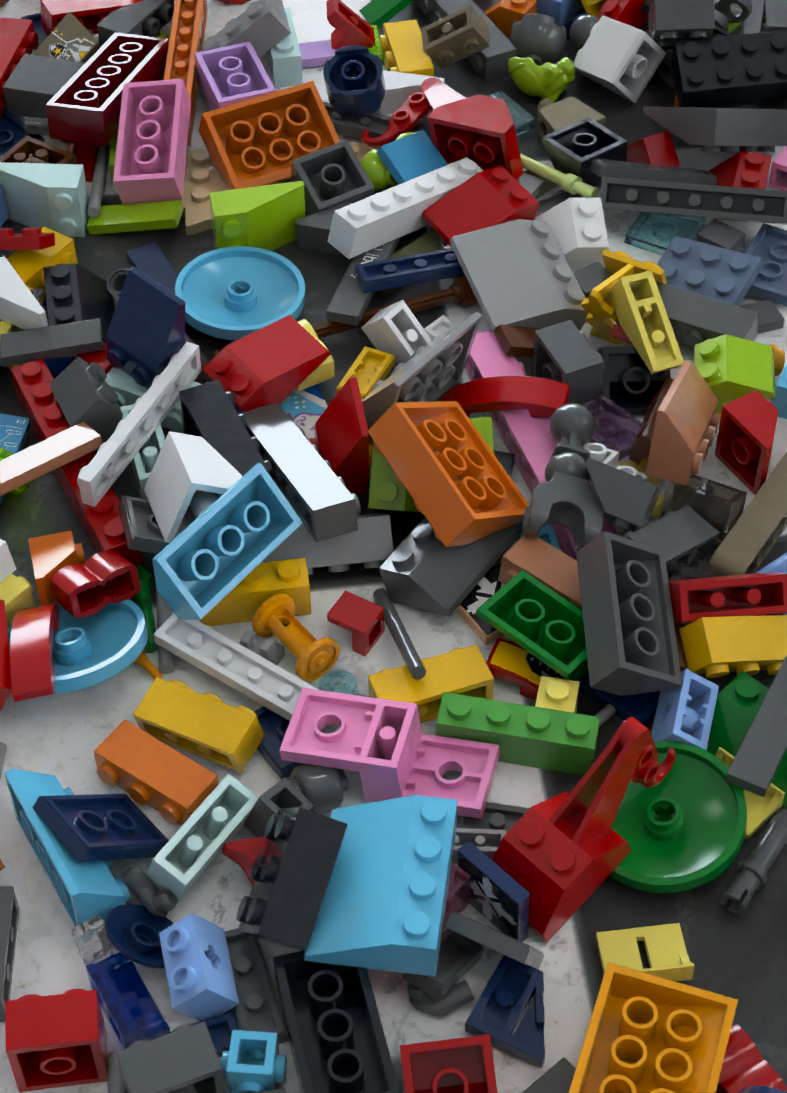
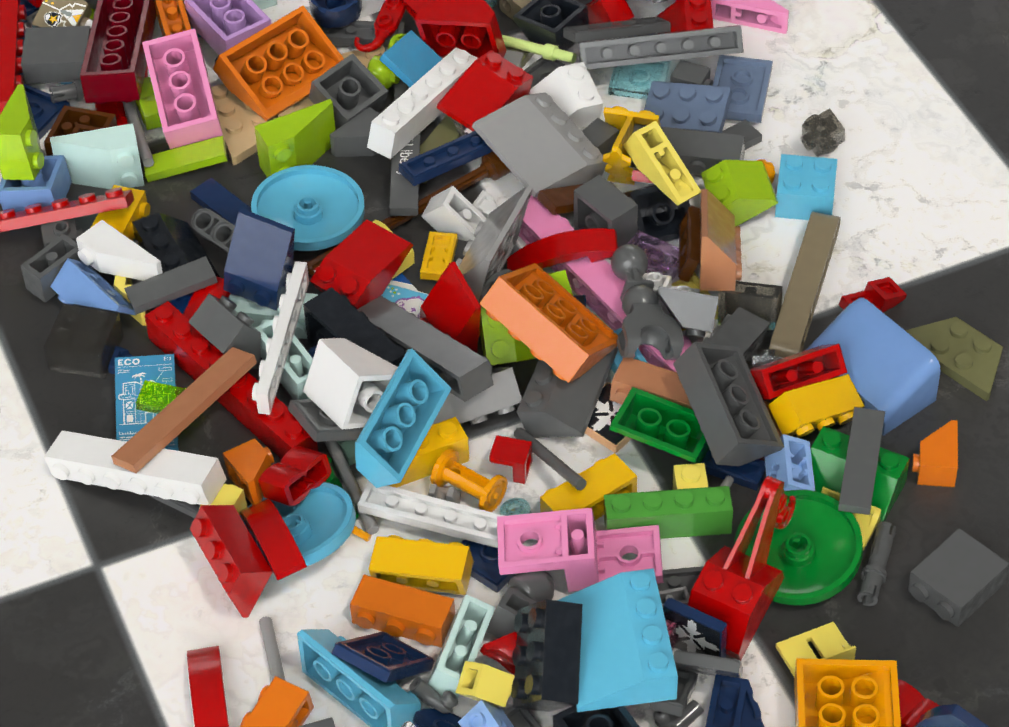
camera: 15 degrees left, 0 degrees up
(206, 894) = (485, 683): none -> light yellow brick
(516, 665) = (652, 462): slope -> none
(747, 438) = (769, 243): red slope -> none

